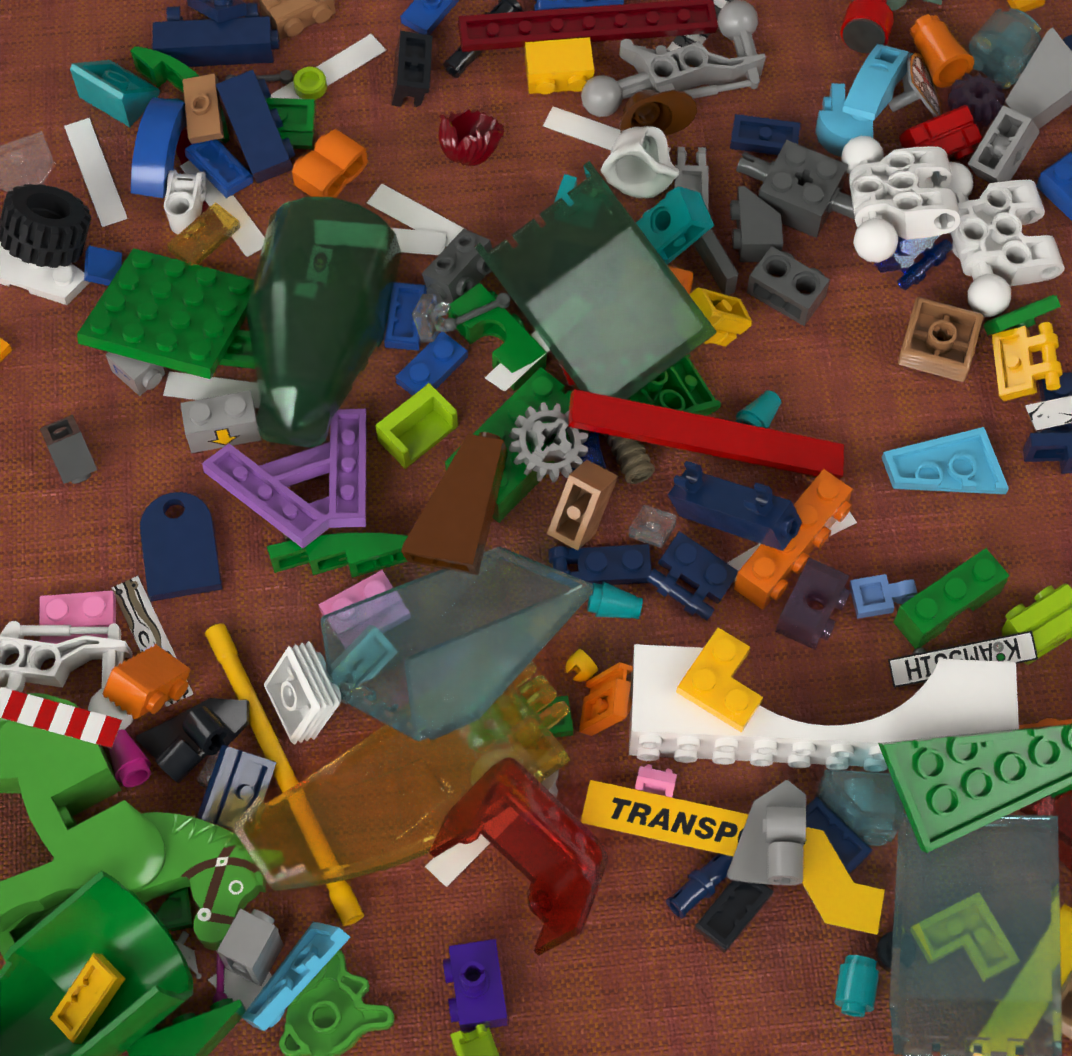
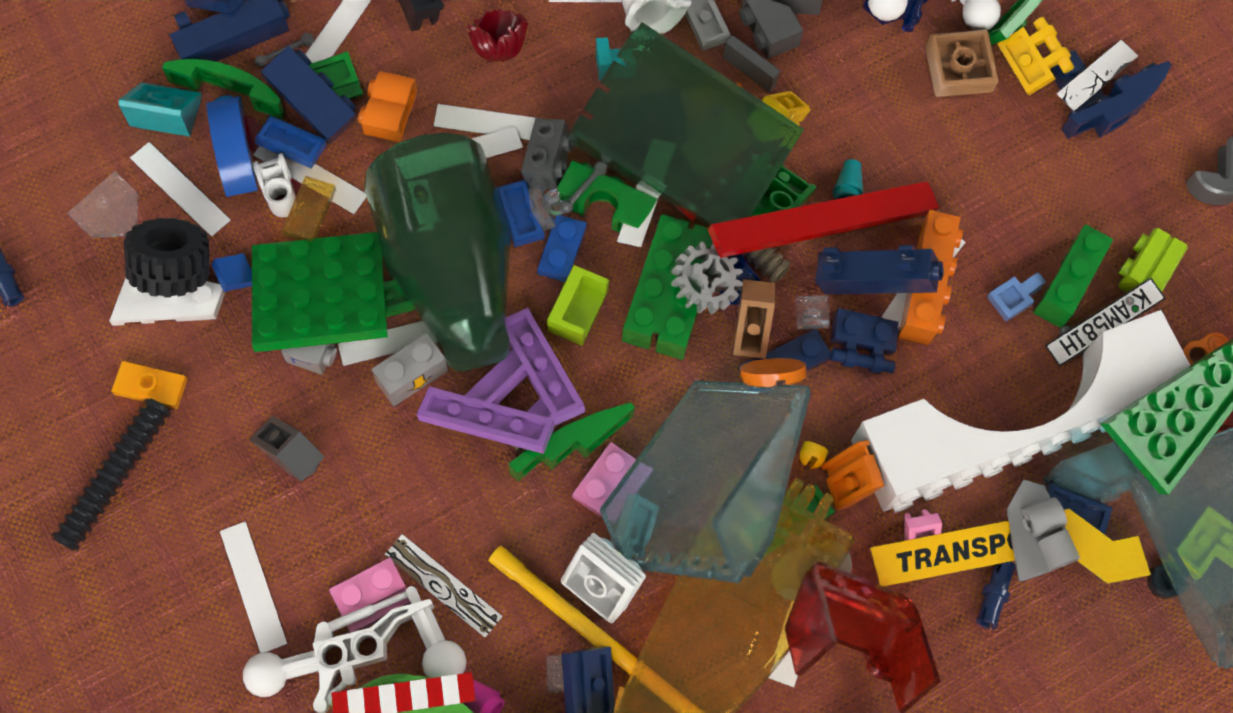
camera: 30 degrees left, 5 degrees up
(147, 682) = (467, 627): orange brick -> none
(179, 551) = (429, 496): dark blue tile -> none
(194, 734) = (526, 652): black panel -> none
(203, 108) = (256, 96): medium nougat plate -> none
(310, 83) = (332, 38): lime tile -> none
(460, 511) = (663, 370): reddish brown slope -> none
(578, 563) = (770, 371): none -> orange tile
(613, 602) = (821, 387): teal cone -> none
(676, 222) = (720, 37): teal brick -> none
(711, 681) = (944, 432): yellow plate -> none
(732, 912) = (1031, 607): black plate -> none
(783, 292) = (820, 72): dark grey brick -> none
(818, 584) = (961, 340): brick -> none
(857, 985) = (1154, 623): teal brick -> none
(947, 464) = (1015, 165): medium azure wing -> none

